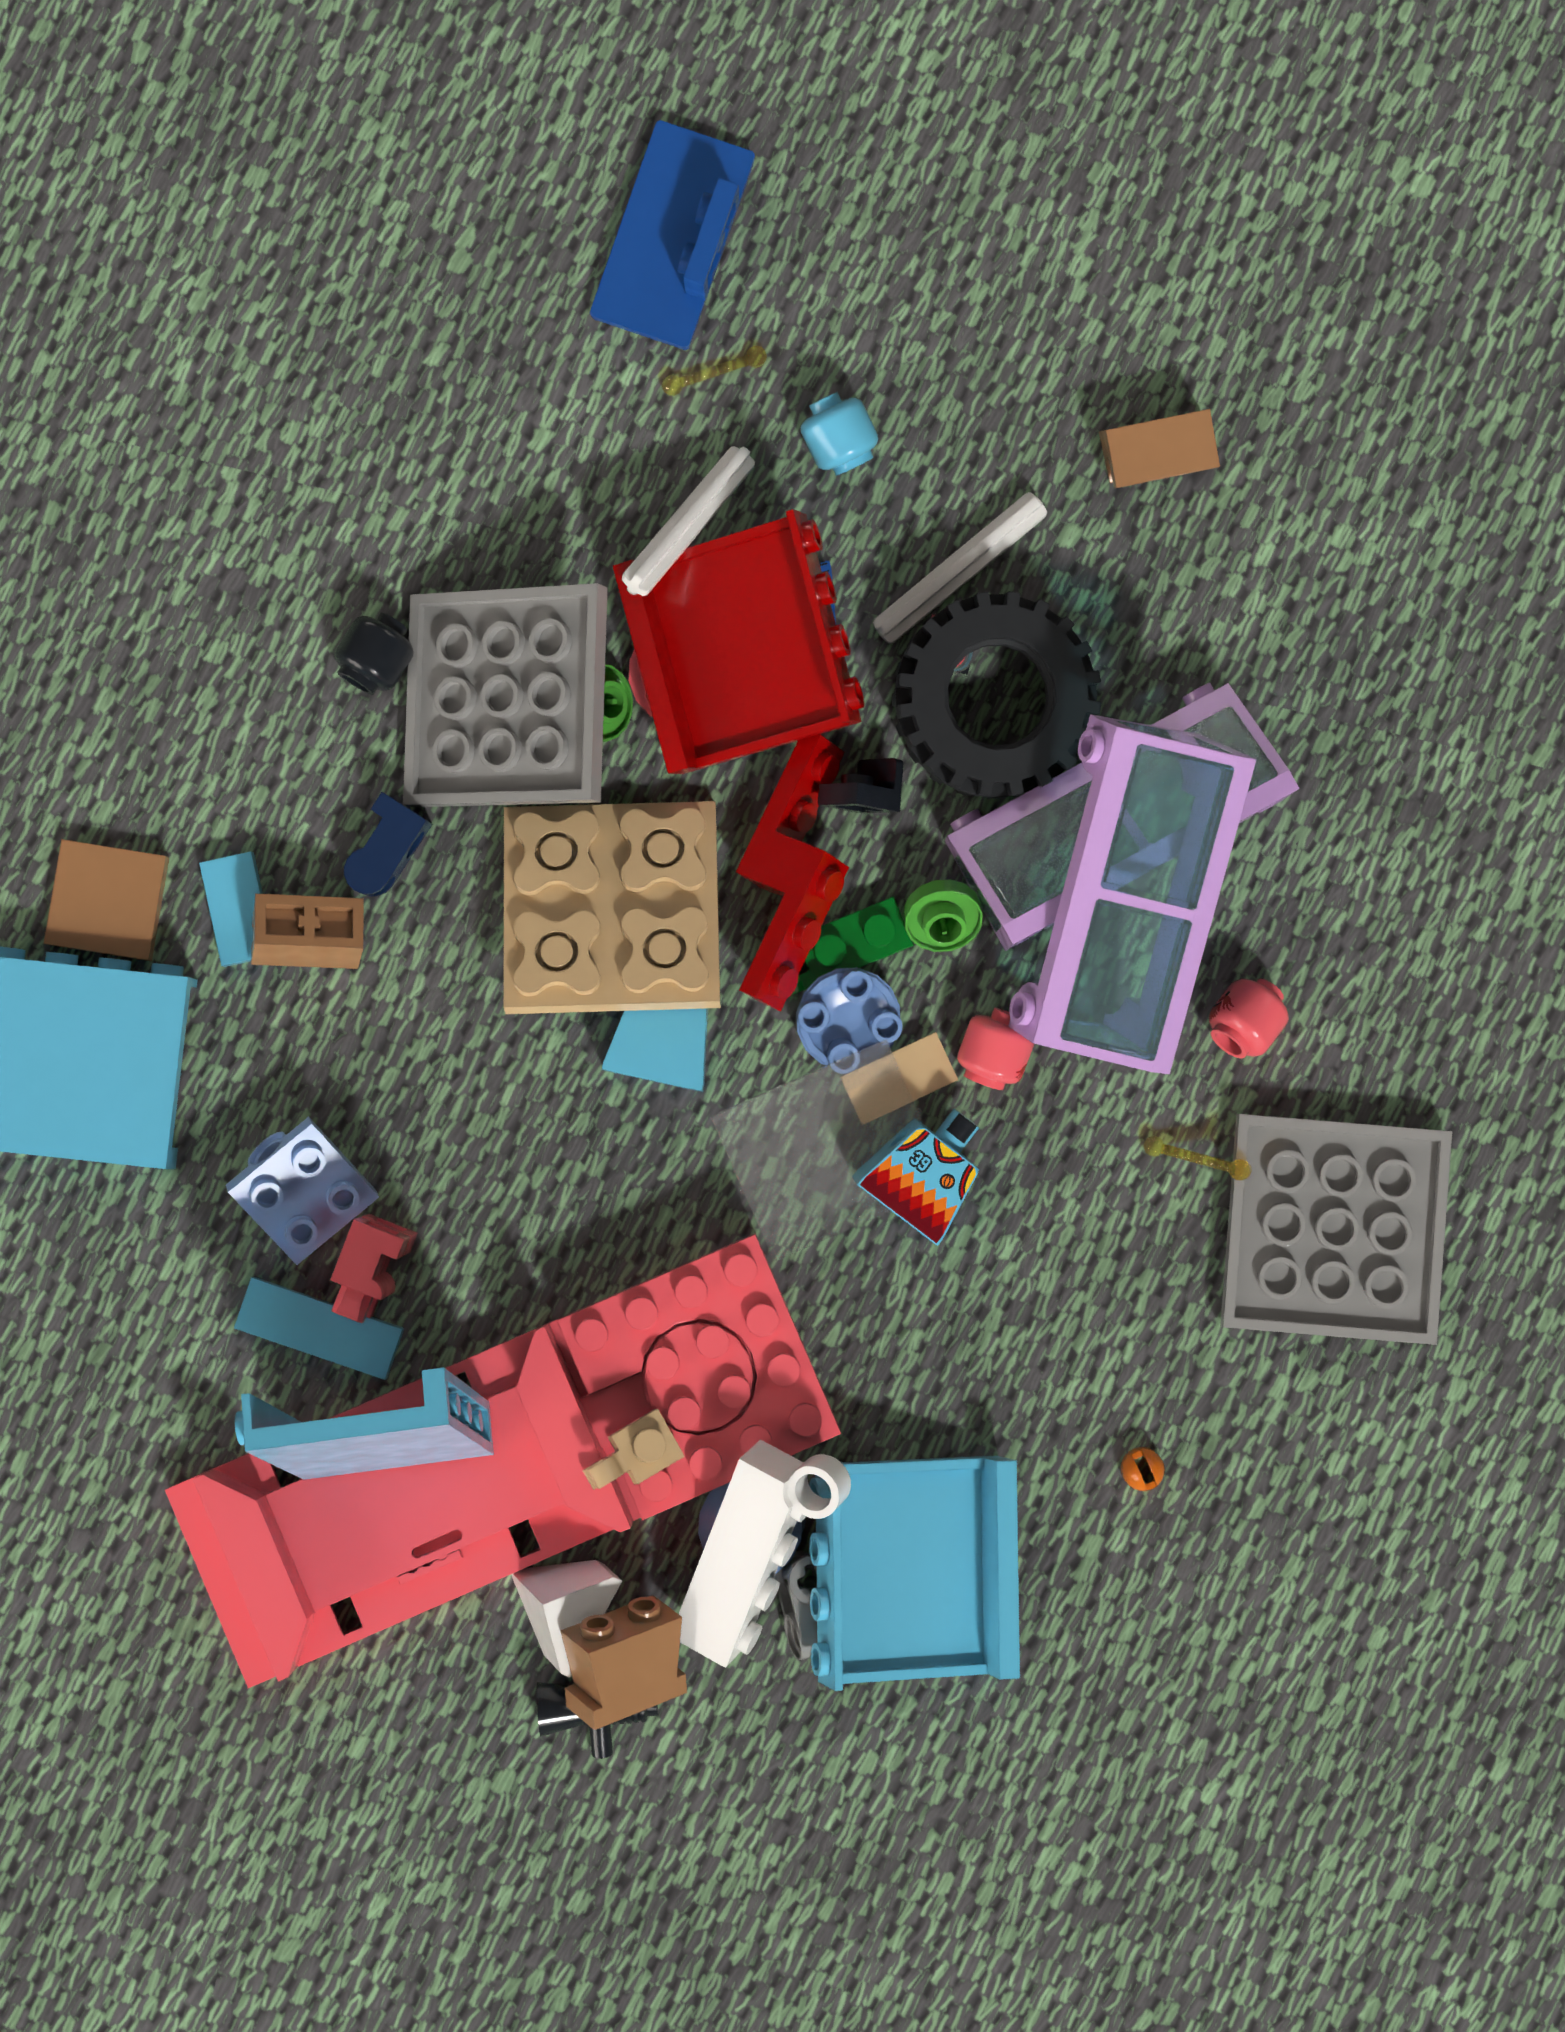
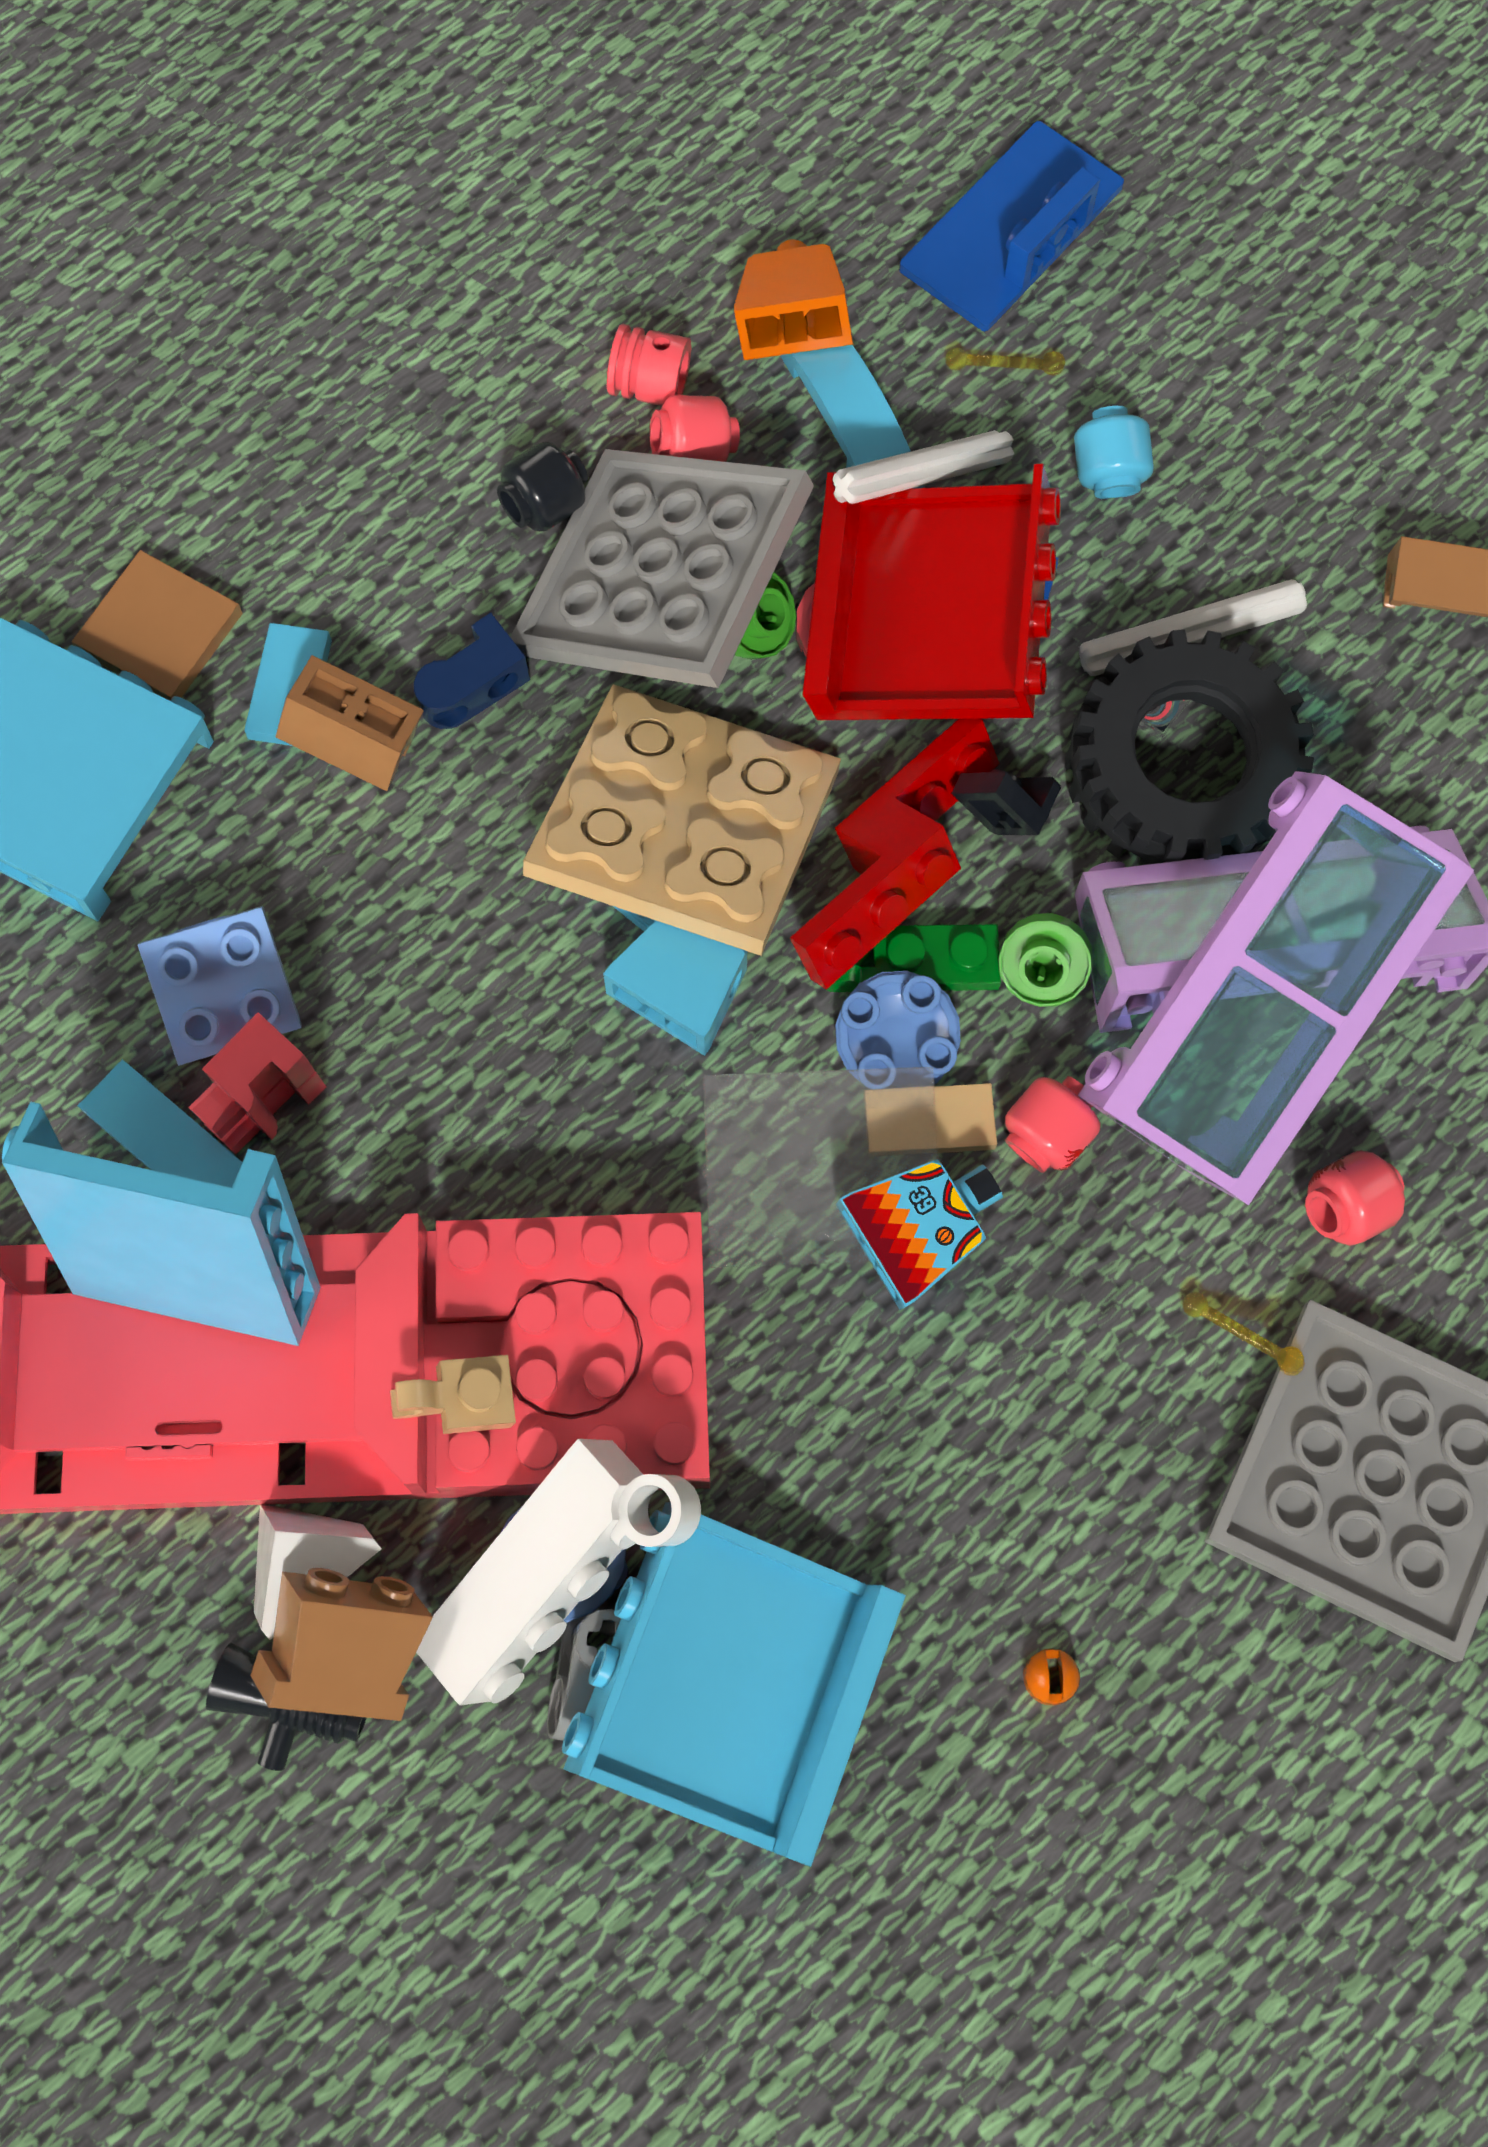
camera: 20 degrees right, 15 degrees down
(416, 503) = (648, 365): none -> coral piece
(480, 553) = (694, 428): none -> coral head
(514, 397) = (791, 302): none -> orange torso
(590, 463) = (849, 403): none -> medium azure slope

